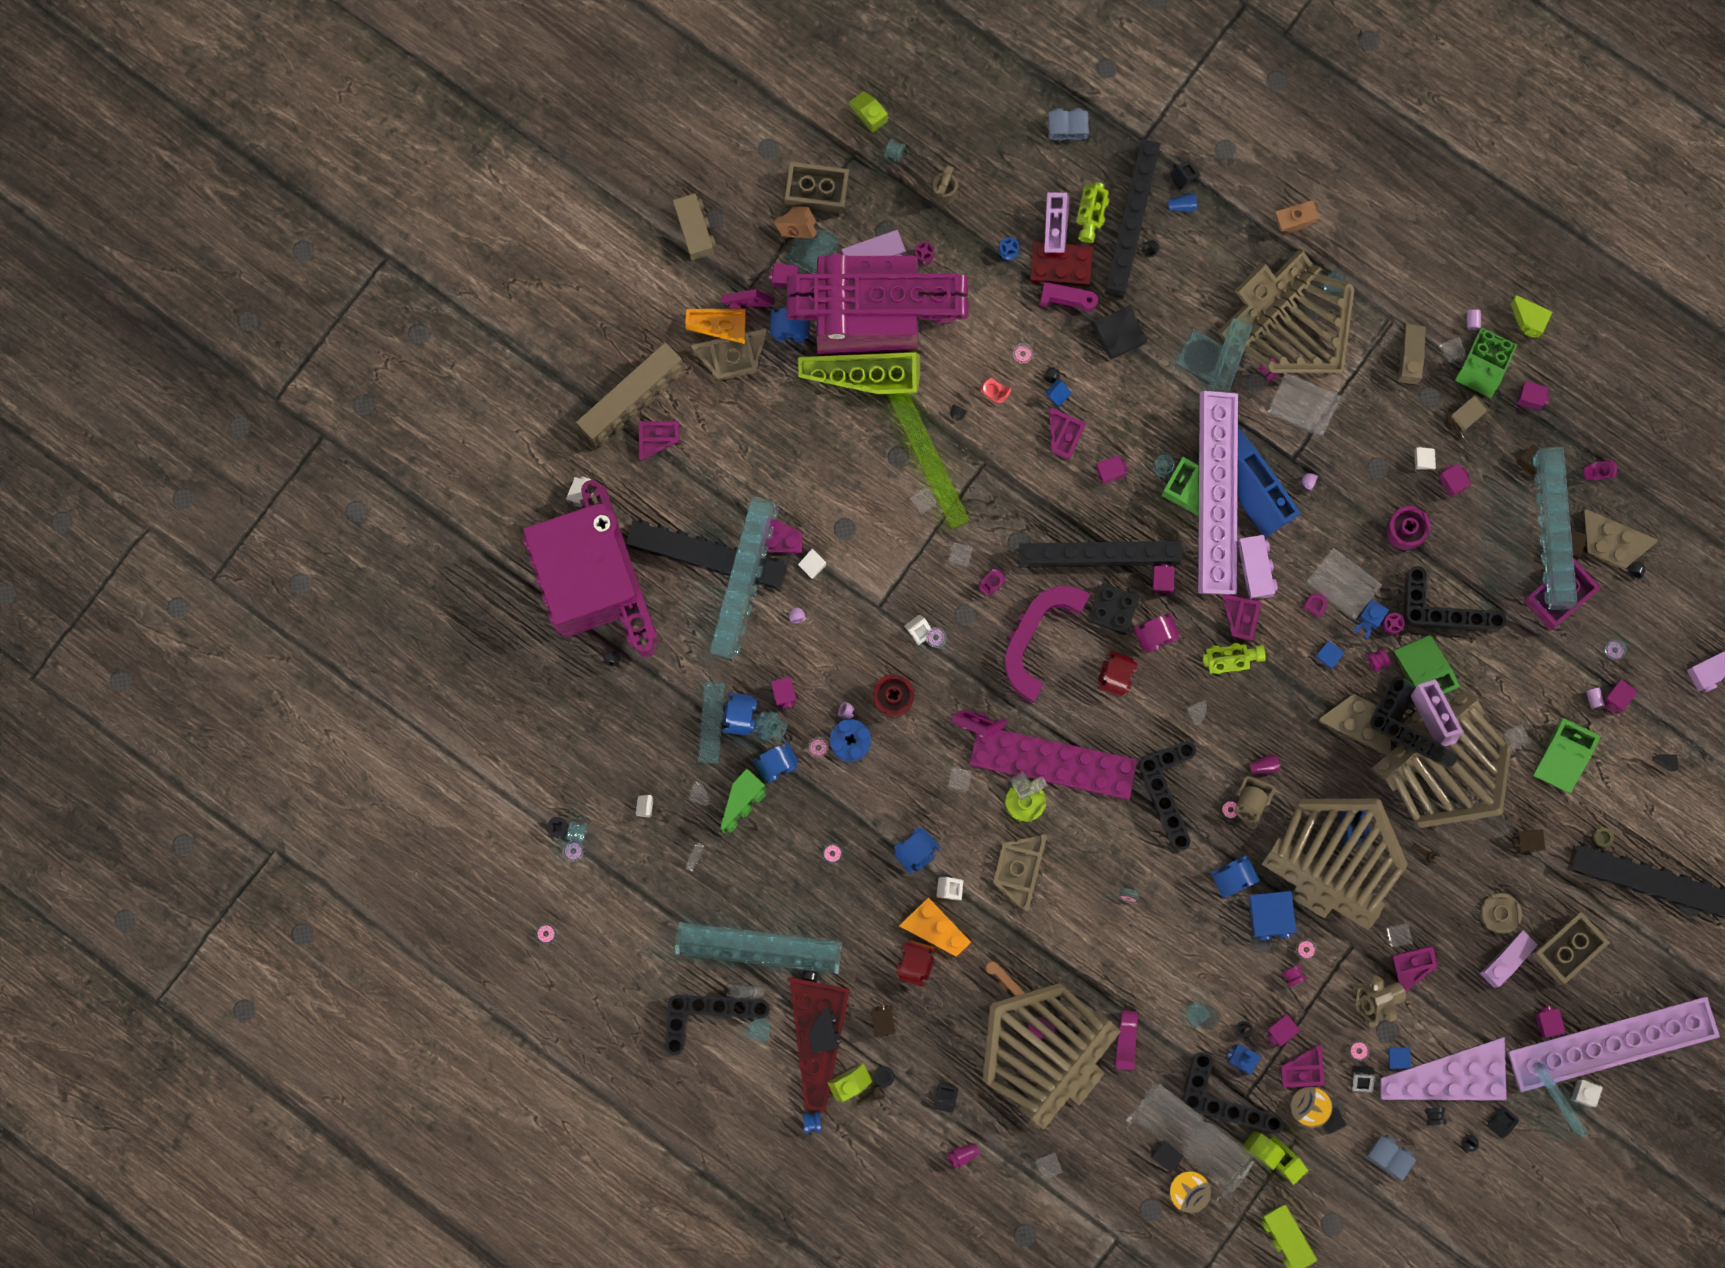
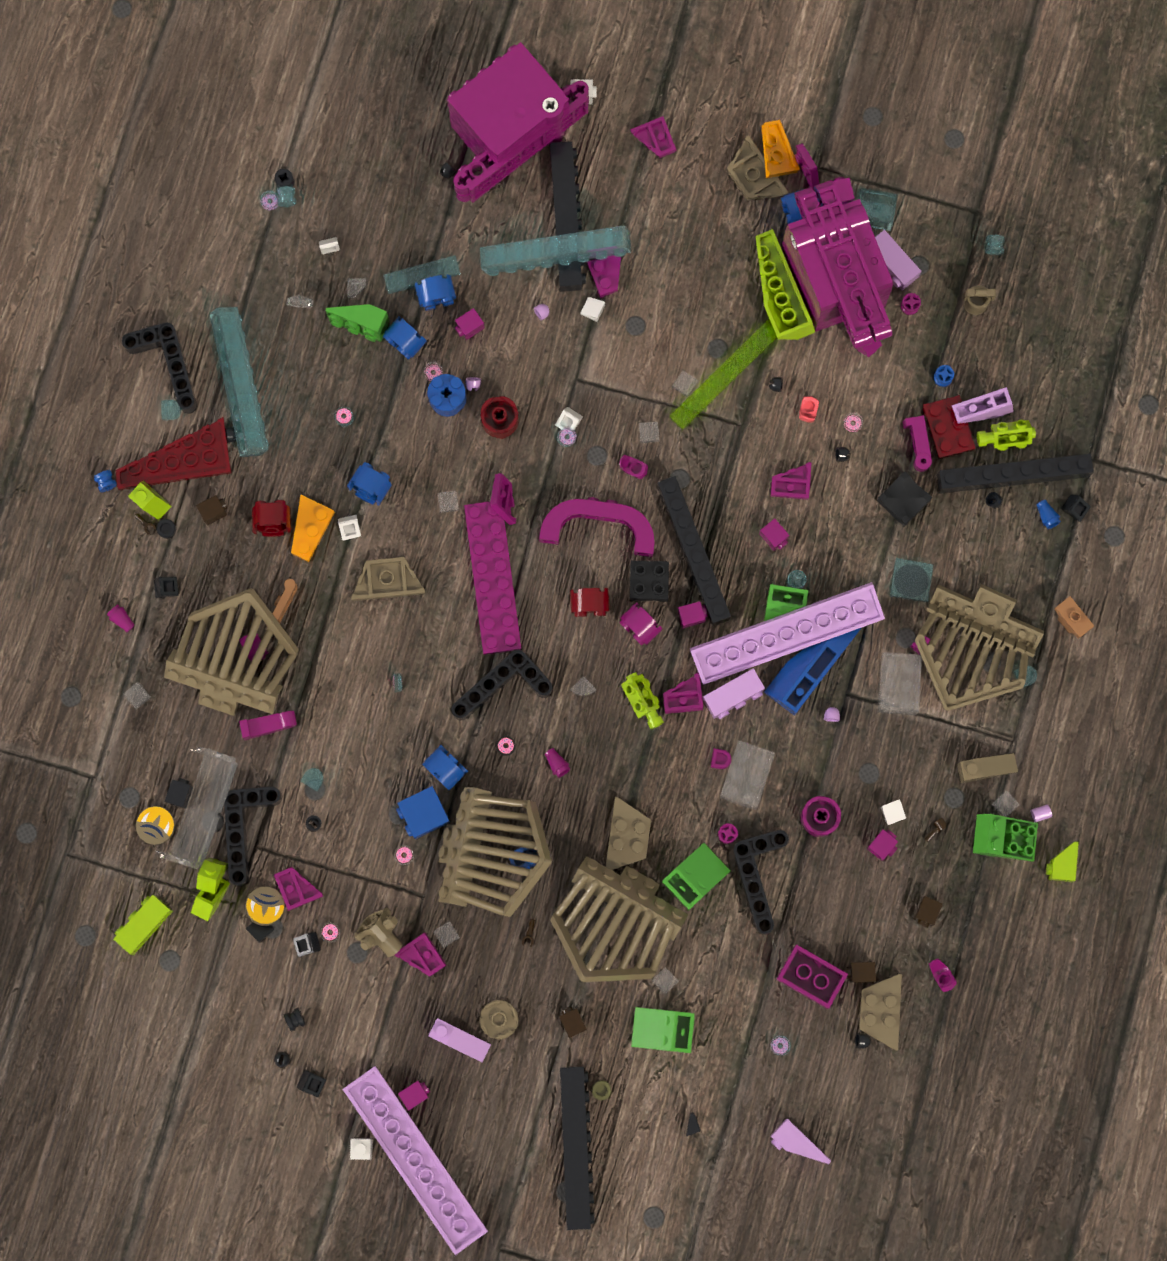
camera: 70 degrees right, 0 degrees up
(546, 934) = (190, 204): tile -> none
(631, 395) = (682, 99): dark tan brick -> none
(694, 226) = (856, 99): dark tan brick -> none
(744, 991) = (197, 384): clear piece -> none
(770, 727) = (432, 328): clear light blue brick -> none
(797, 223) = (893, 184): medium nougat brick -> none
(817, 187) = (932, 189): dark tan brick -> none
(822, 1033) = (183, 460): black slope -> none
(869, 111) = (1022, 210): lime slope -> none
(1025, 788) = (459, 558): clear piece -> none
(1027, 809) = (449, 565): lime tile -> none
(1058, 393) = (827, 464): blue tile -> none
(1067, 124) = (1079, 386): sand blue brick -> none
(1230, 356) = (917, 602): clear light blue tile -> none
(1243, 1058) = (287, 831): blue brick -> none
(1252, 799) = (519, 761): dark tan piece -> none
(1282, 1031) = (323, 857): magenta brick -> none
(1294, 976) = (376, 851): magenta wheel -> none
(1329, 655) = (679, 787): blue tile -> none
(1371, 617) = (726, 812): blue brick -> none
(1378, 659) = (689, 831): magenta wheel -> none
(1387, 722) = (630, 856): black beam -> none
(1390, 1157) = (244, 991): sand blue brick -> none
(1399, 1058) = (336, 970): blue tile -> none
(1436, 713) = (652, 892): lavender brick -> none
(1465, 1075) = (339, 1032): lavender wing -> none
(1470, 412) = (952, 838): dark tan slope -> none
(1533, 396) = (989, 891): magenta brick -> none
(1555, 528) = (869, 947): clear light blue brick -> none
(1559, 1099) = (345, 1126): clear light blue tile -> none
(1570, 948) = (487, 1090): dark tan brick -> none
(1595, 698) = (727, 1040): lavender hinge -> none
(1619, 696) = (736, 1061): magenta brick -> none

